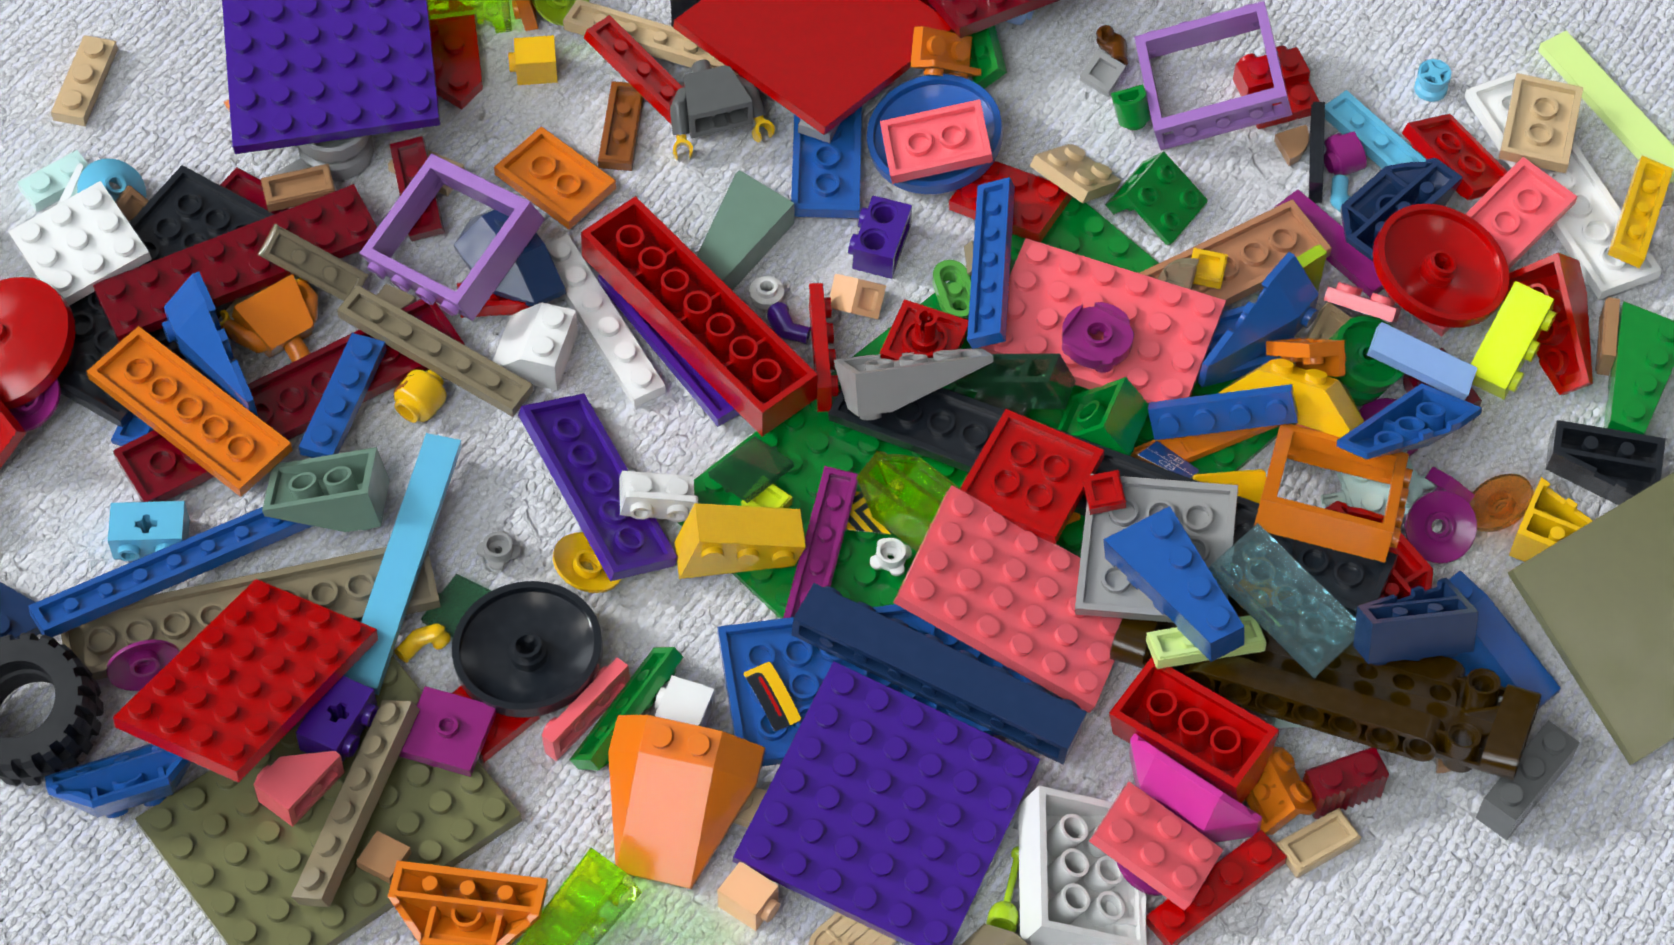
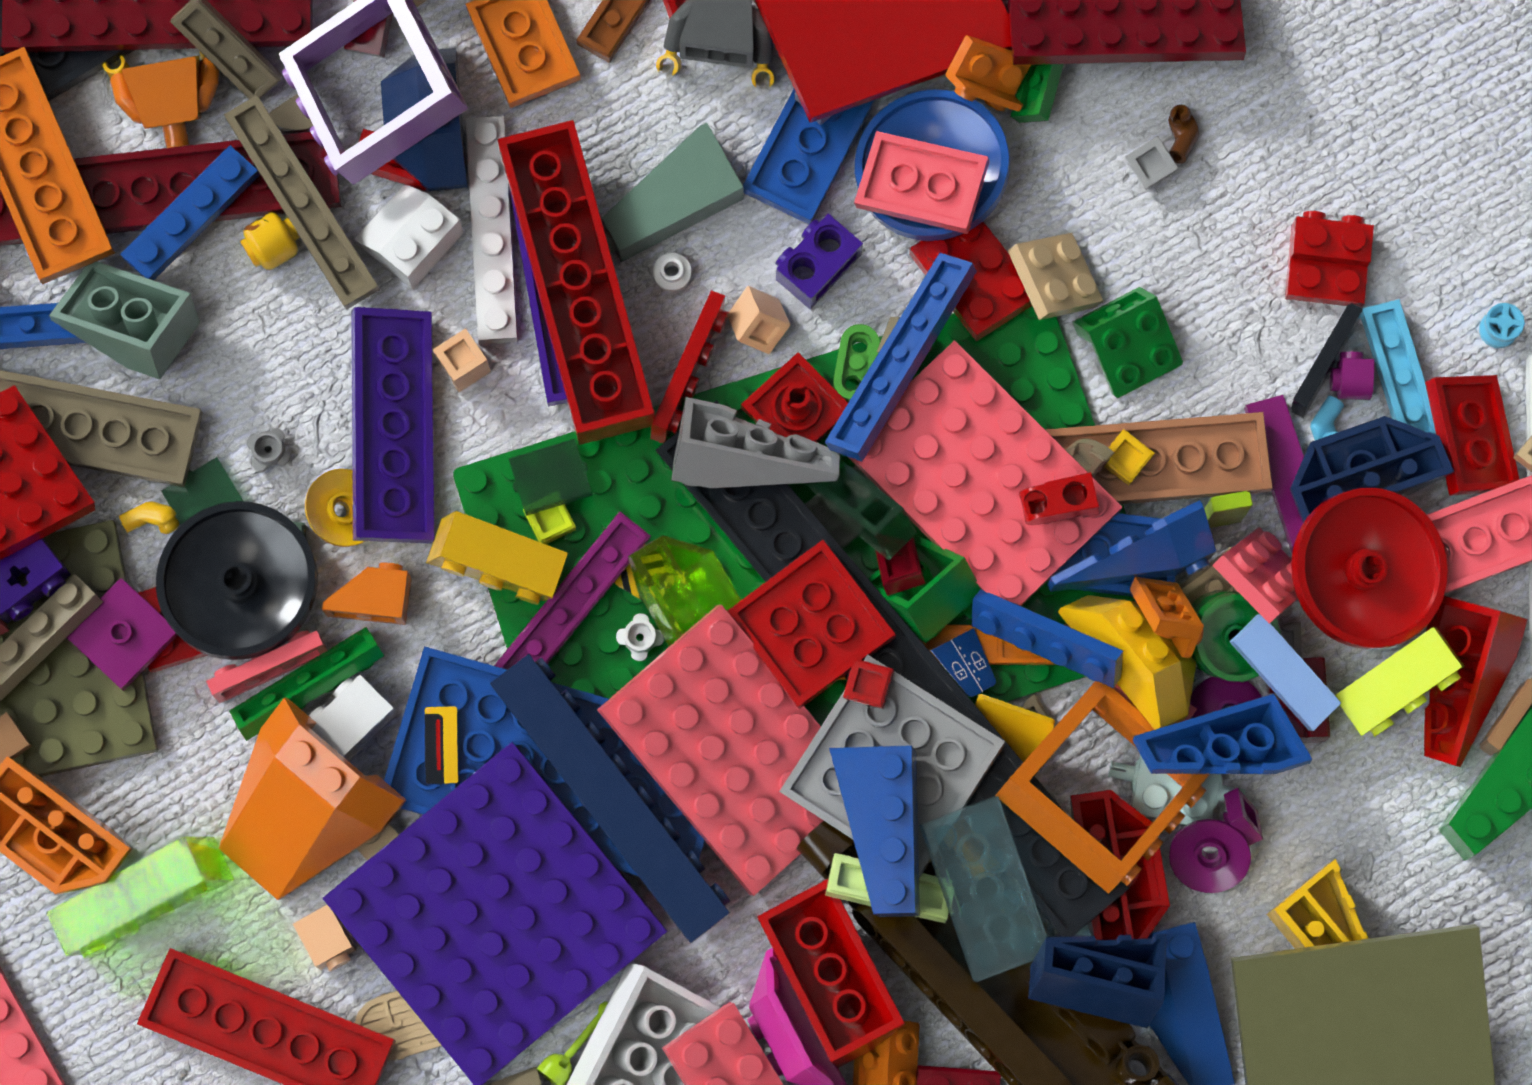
camera: 25 degrees right, 20 degrees up
(202, 341) = (79, 80): blue wedge -> none
(405, 555) = (168, 423): medium azure tile -> none
(632, 412) = (462, 360): none -> light nougat panel
(648, 620) = (373, 596): none -> orange slope
(656, 495) = (442, 466): white bracket -> none
(783, 325) = (669, 317): dark purple arm -> none
(1077, 414) = (902, 570): none -> dark red tile
(1092, 353) = (965, 474): magenta plate -> none
(1132, 113) = (1159, 220): green plate -> none
(1178, 305) = (1060, 500): none -> red leg
(1221, 116) = (1250, 281): medium lavender window -> none
(1292, 143) = (1310, 335): medium nougat tile -> none
(1501, 501) = (1283, 844): clear orange dish -> none
(1605, 459) = (1424, 868): black wedge -> none

